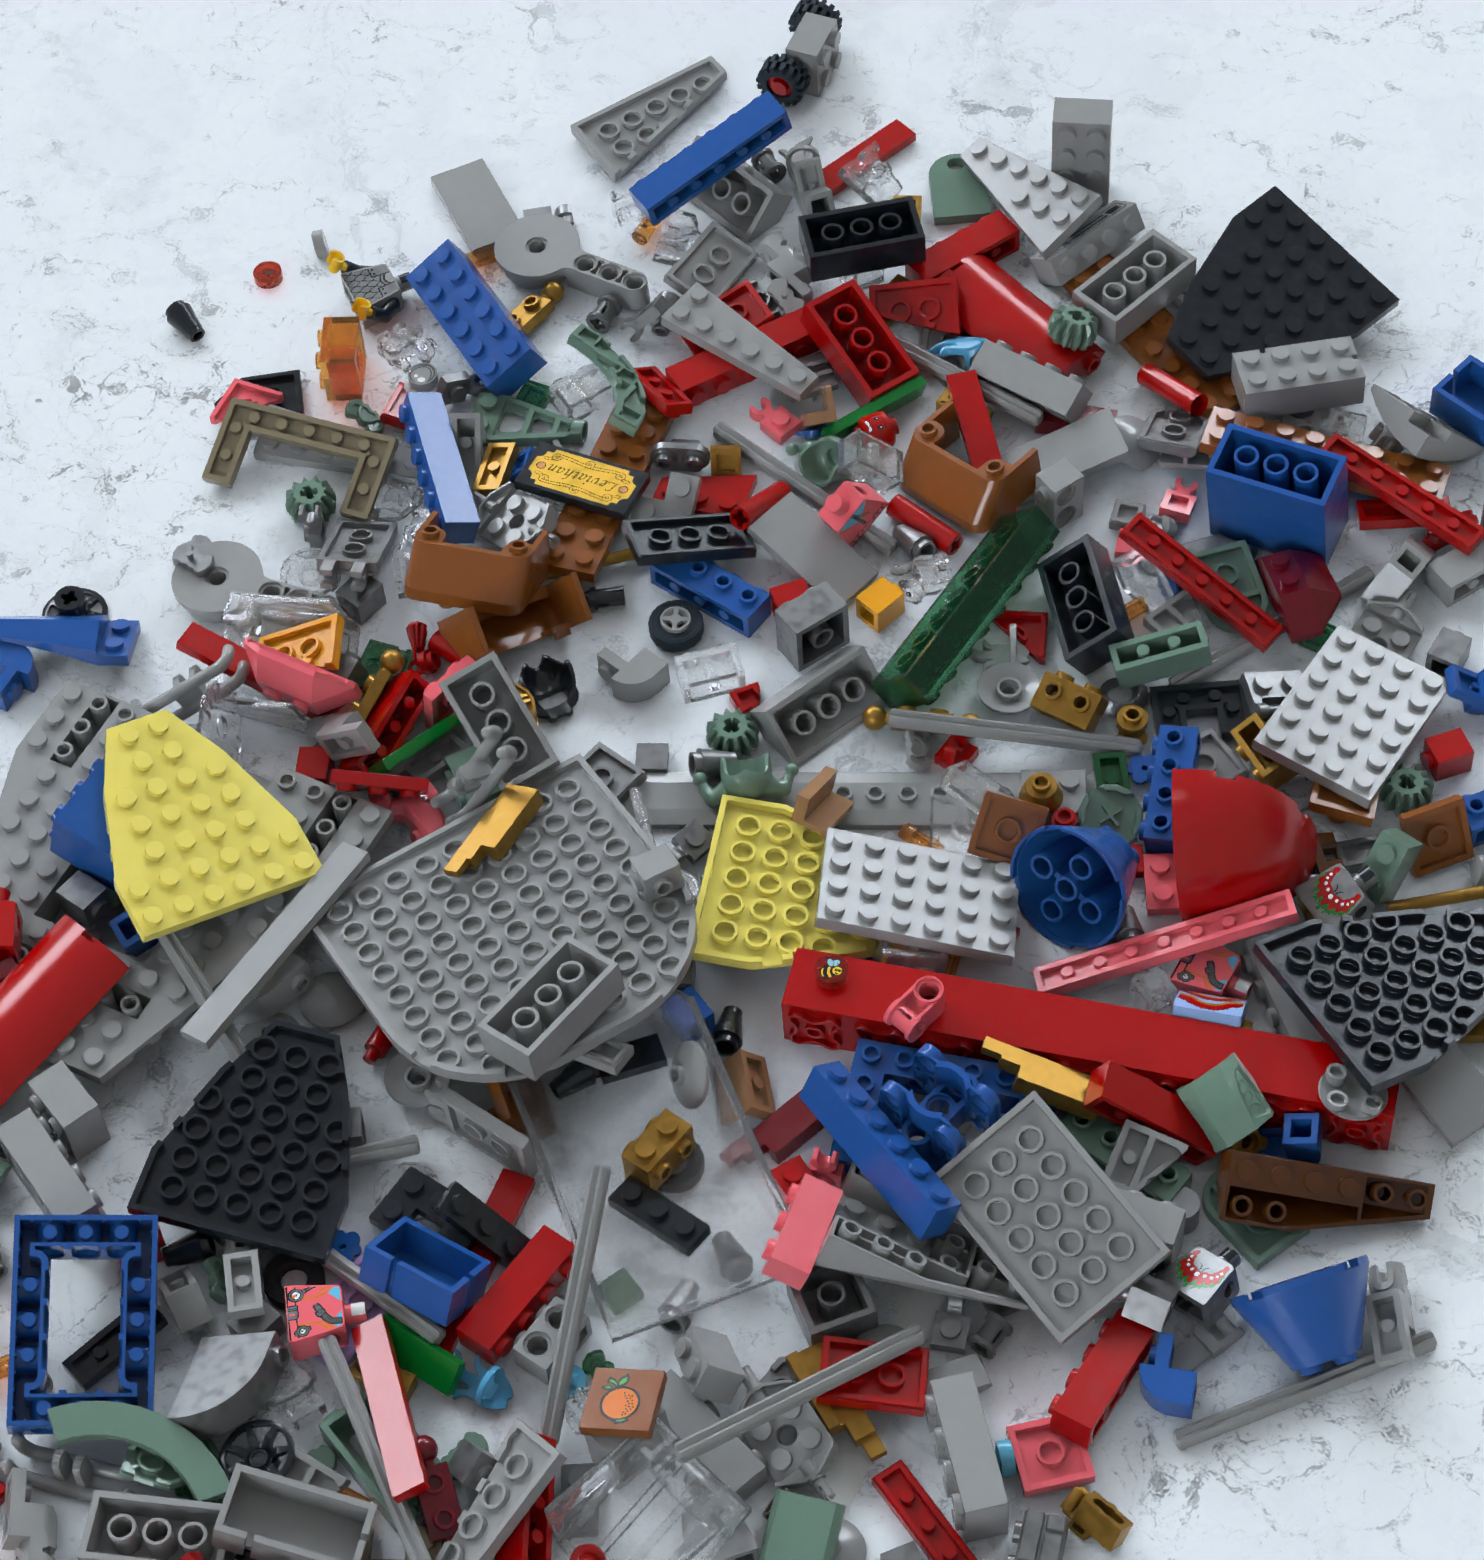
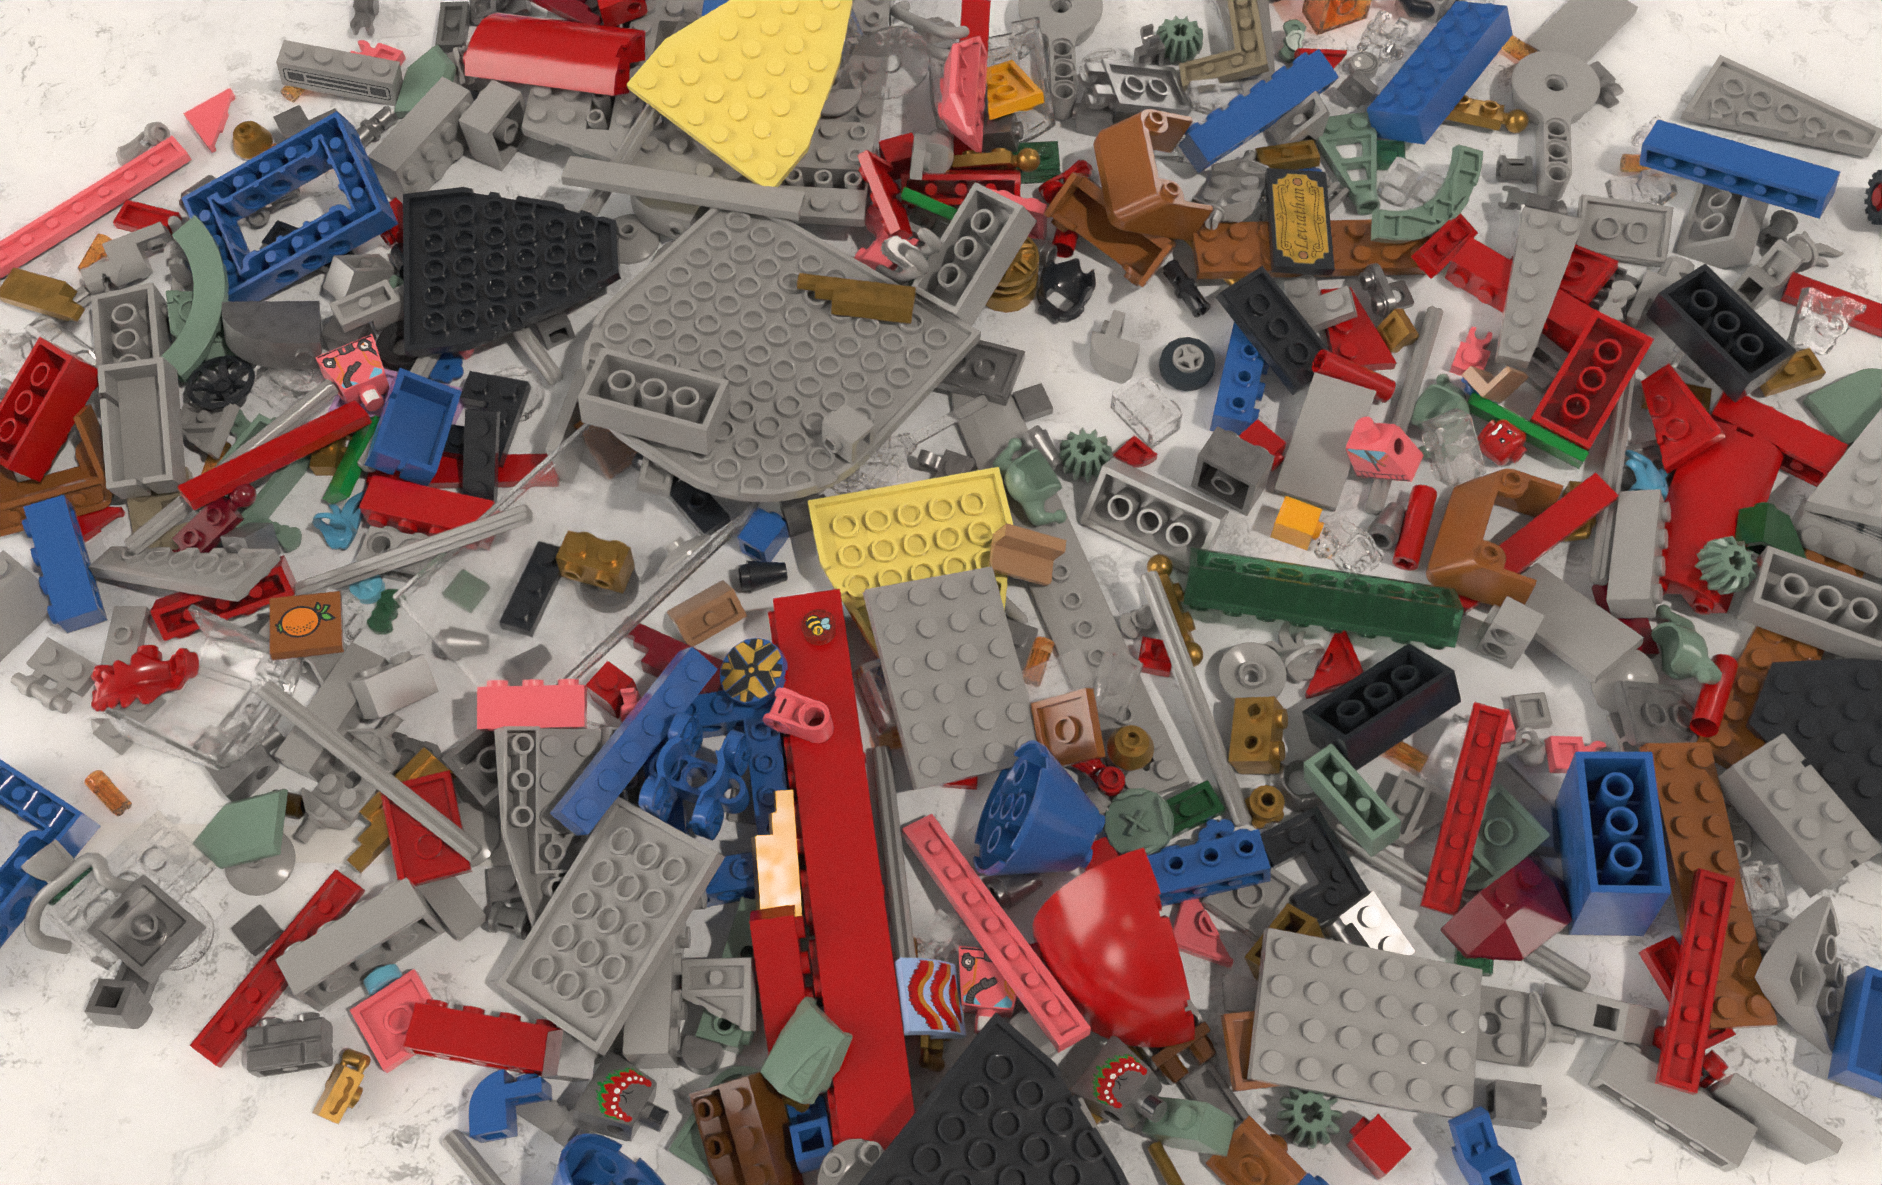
camera: 65 degrees right, 10 degrees up
(850, 1037) = (753, 671): none -> tile
(1051, 290) = (1767, 526): none -> dark green slope
(1128, 391) = (1683, 649): none -> sand green piece

